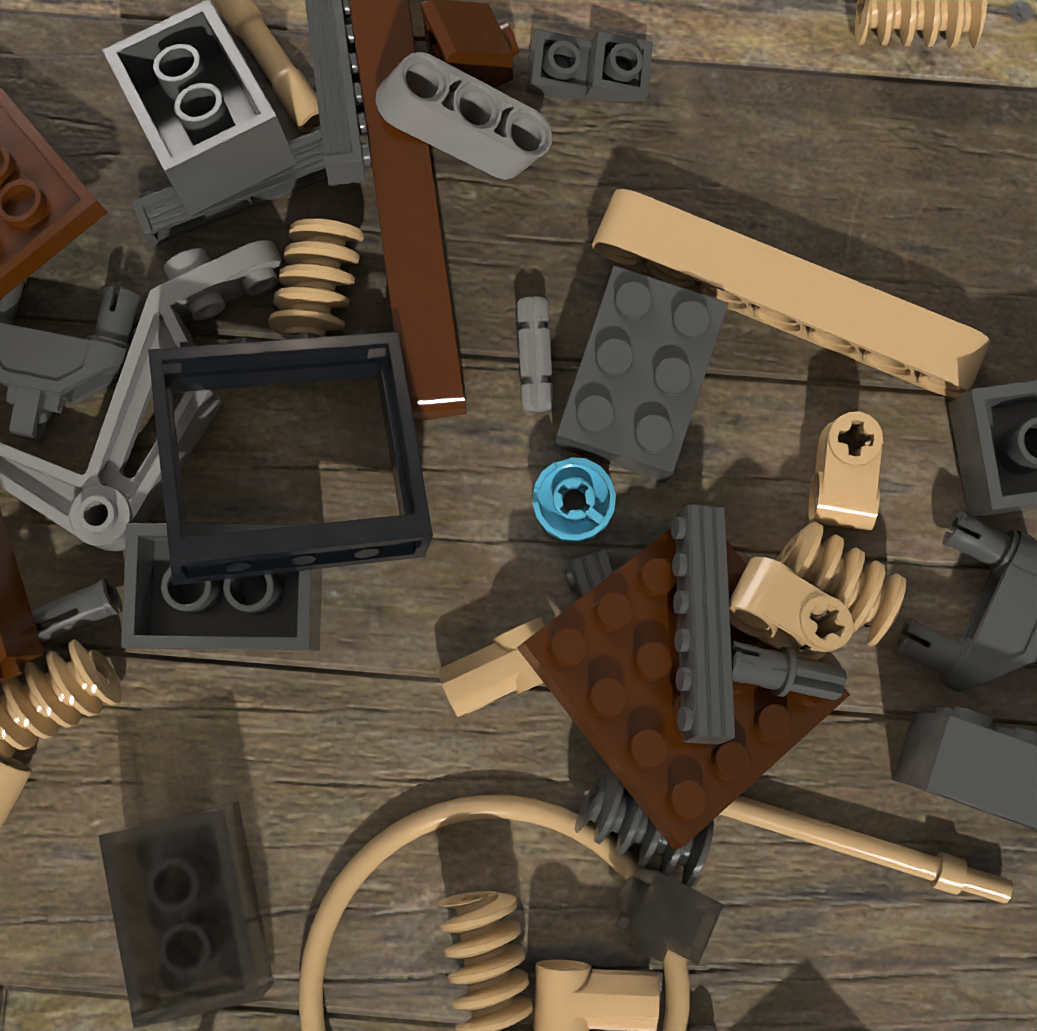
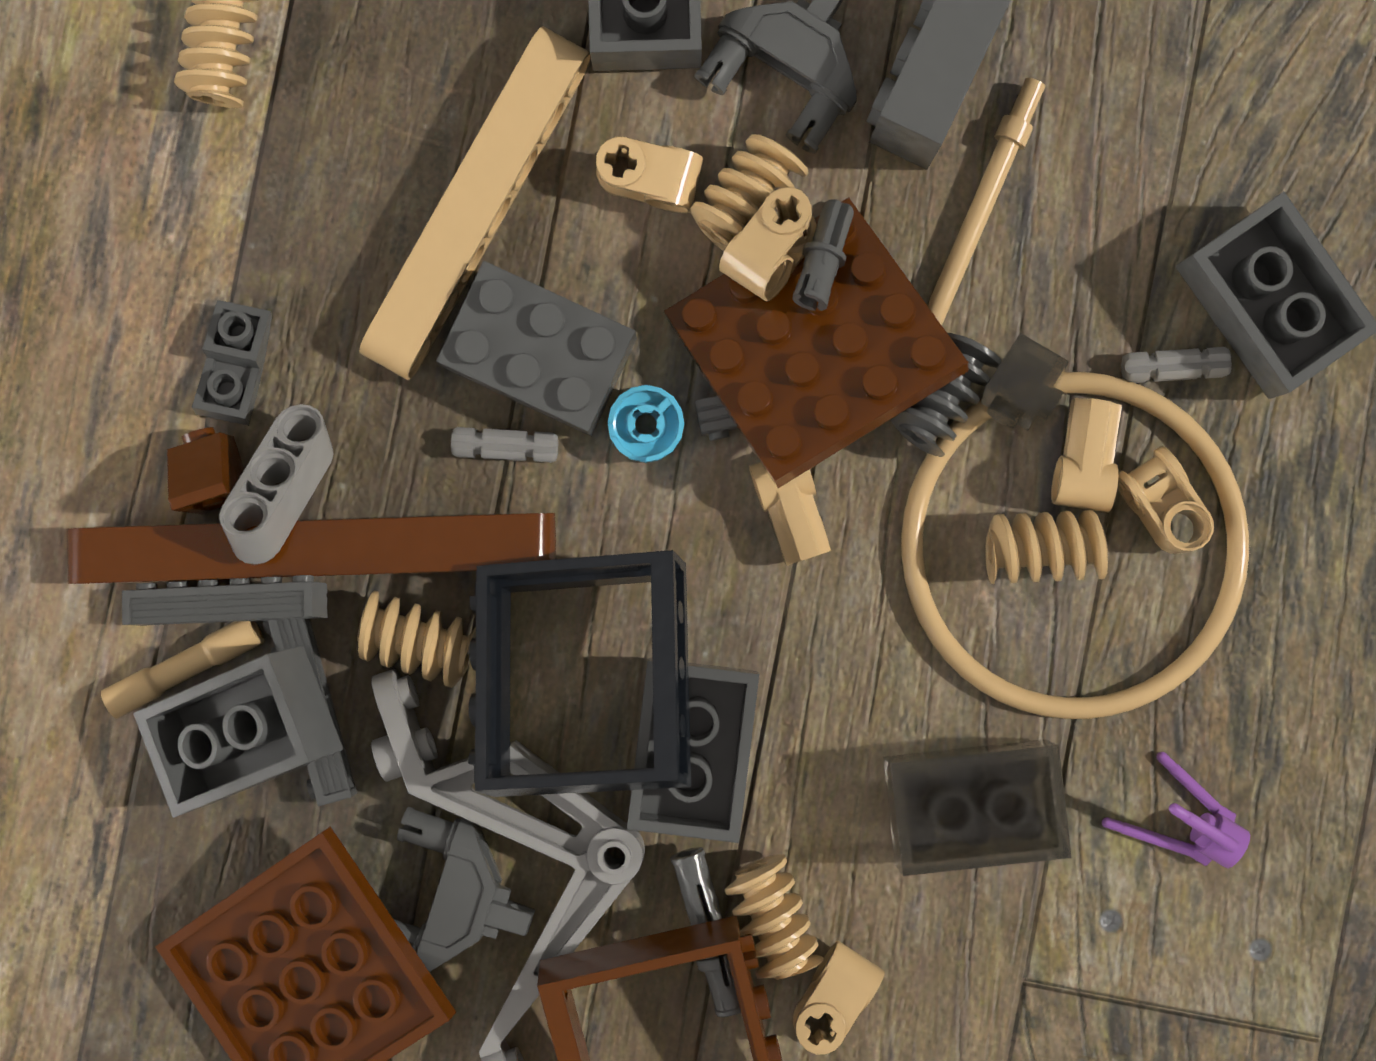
camera: 85 degrees left, 5 degrees up
(703, 626) = (774, 320): dark grey piece -> none

